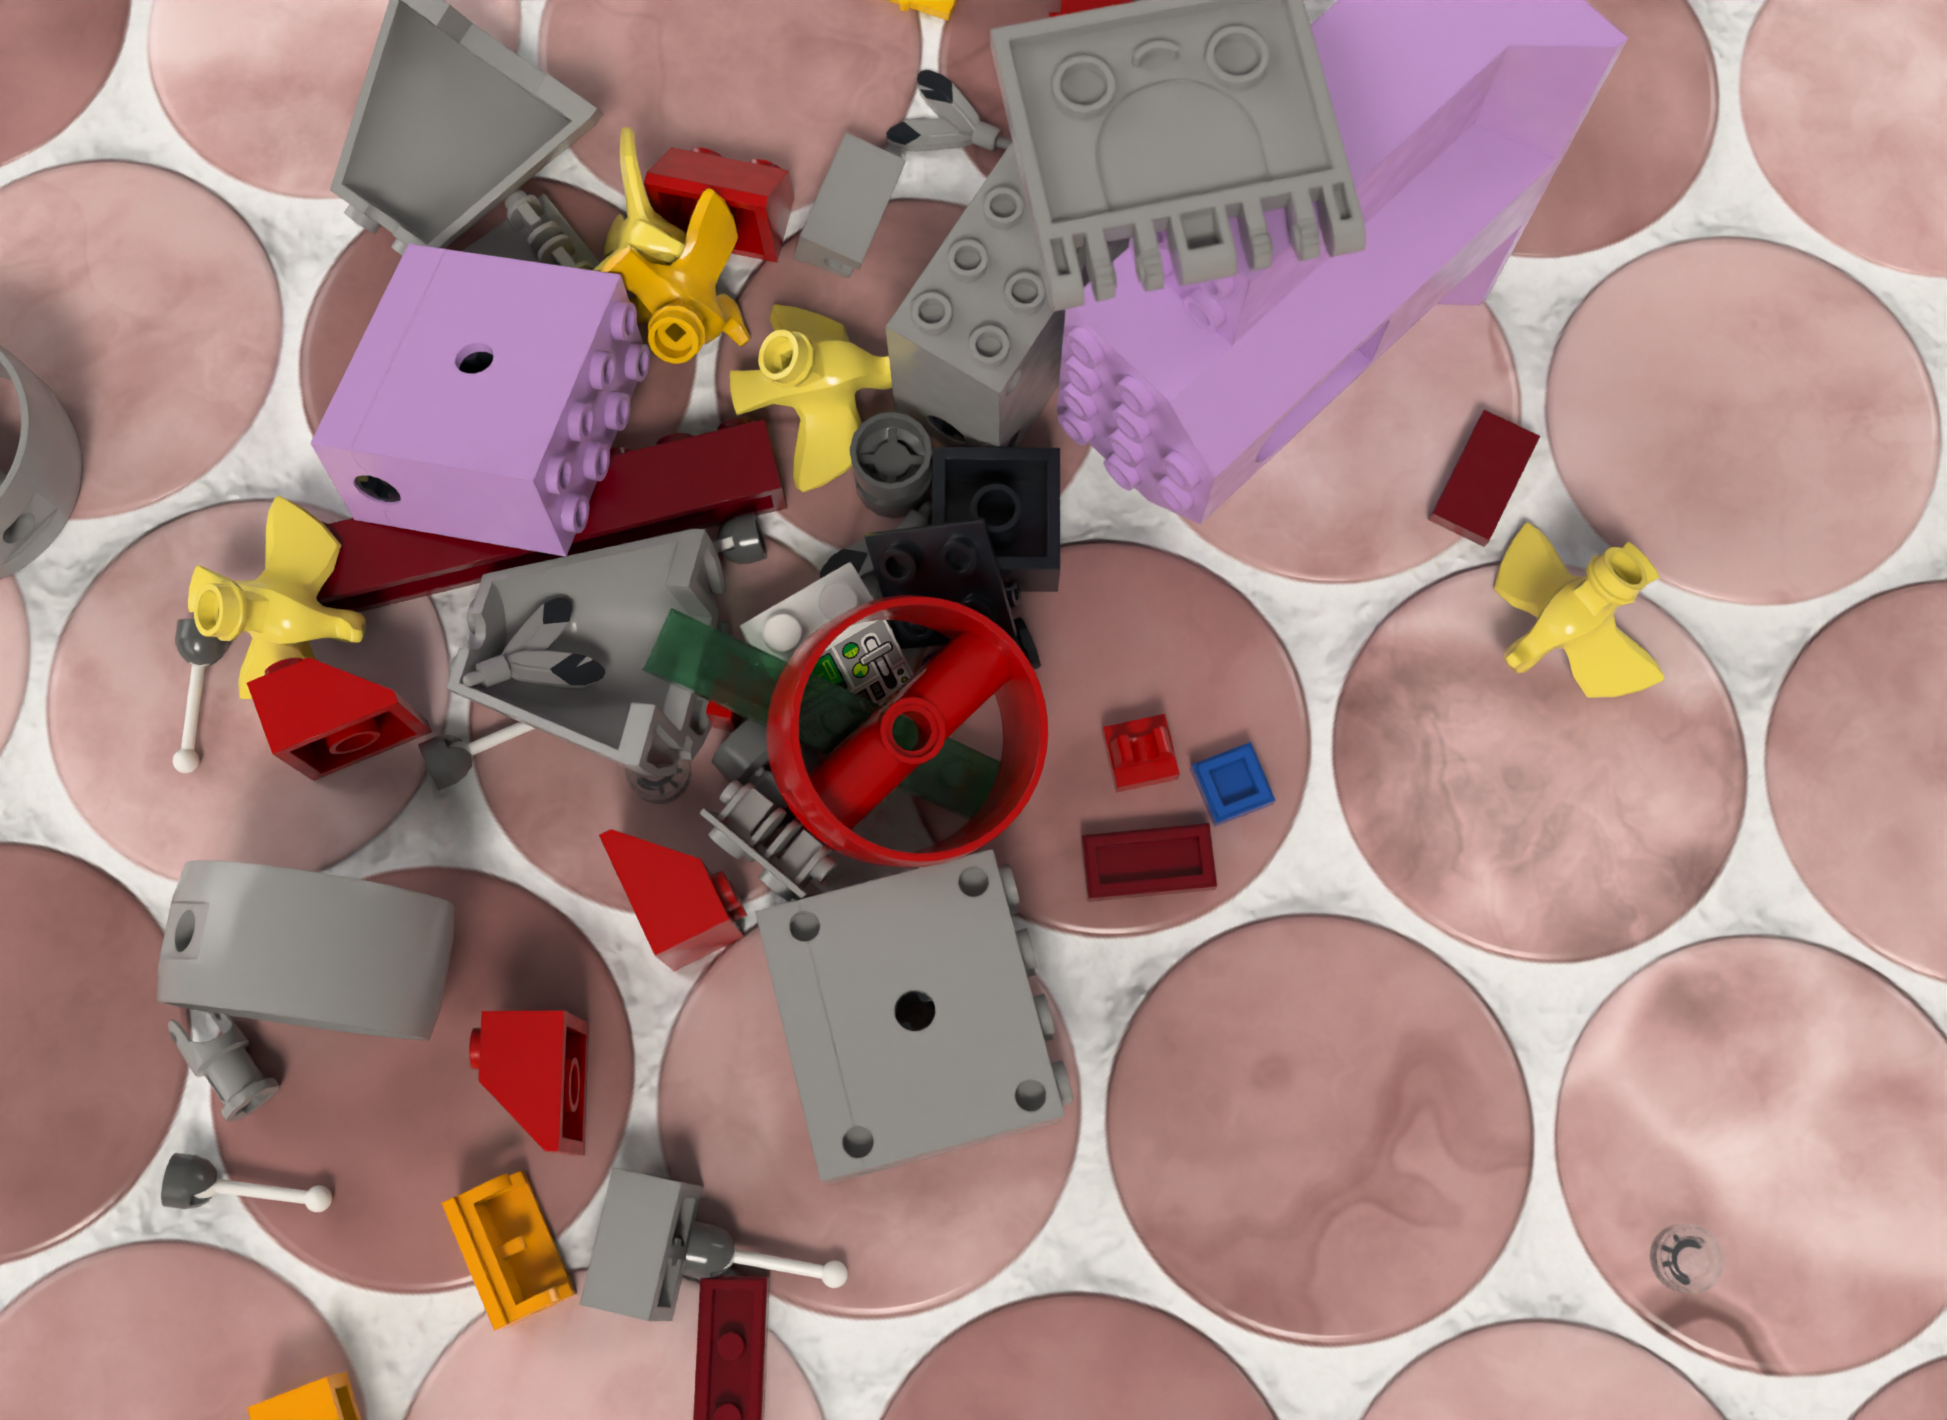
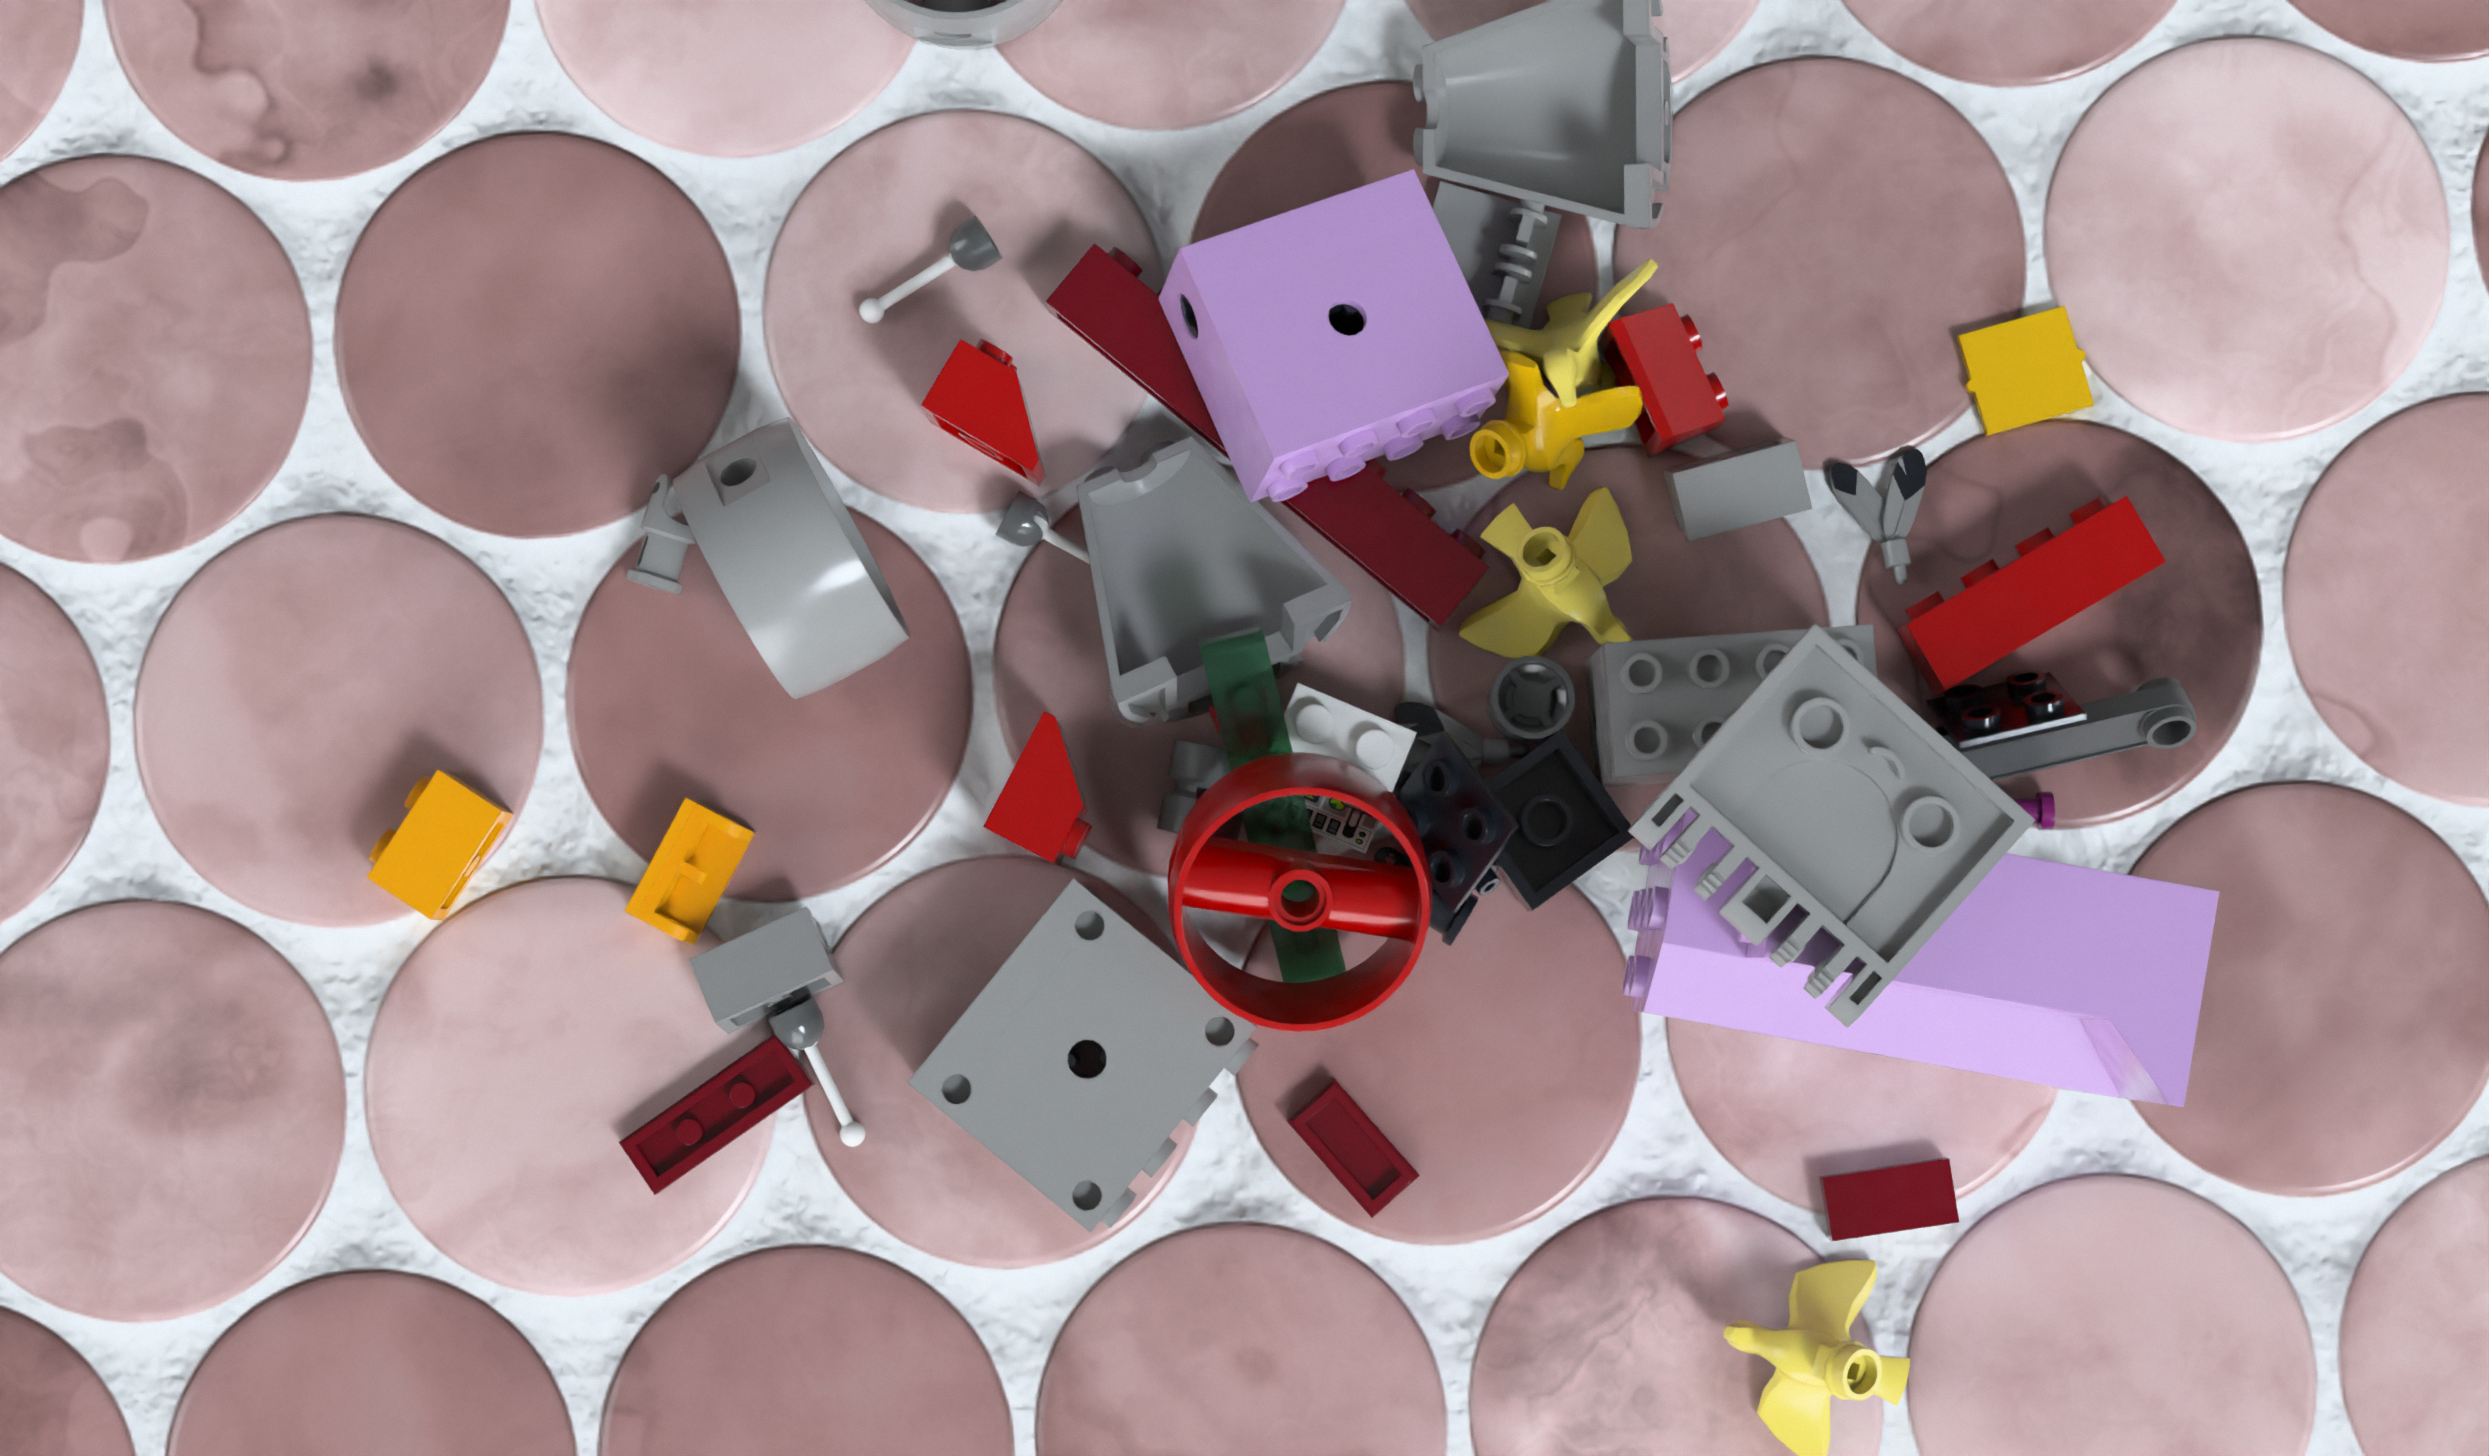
camera: 55 degrees right, 10 degrees up
(194, 1181) = (563, 590): hinge -> none
(282, 602) = (1034, 304): light yellow animal -> none
(528, 658) = (1146, 533): light grey piece -> none
(536, 1072) = (831, 795): red slope -> none
(741, 539) = (1376, 617): dark grey hinge -> none
(785, 875) = (1124, 874): light grey hinge -> none
(1140, 753) = (1439, 1077): red tile -> none
(1232, 784) = (1467, 1171): blue tile -> none

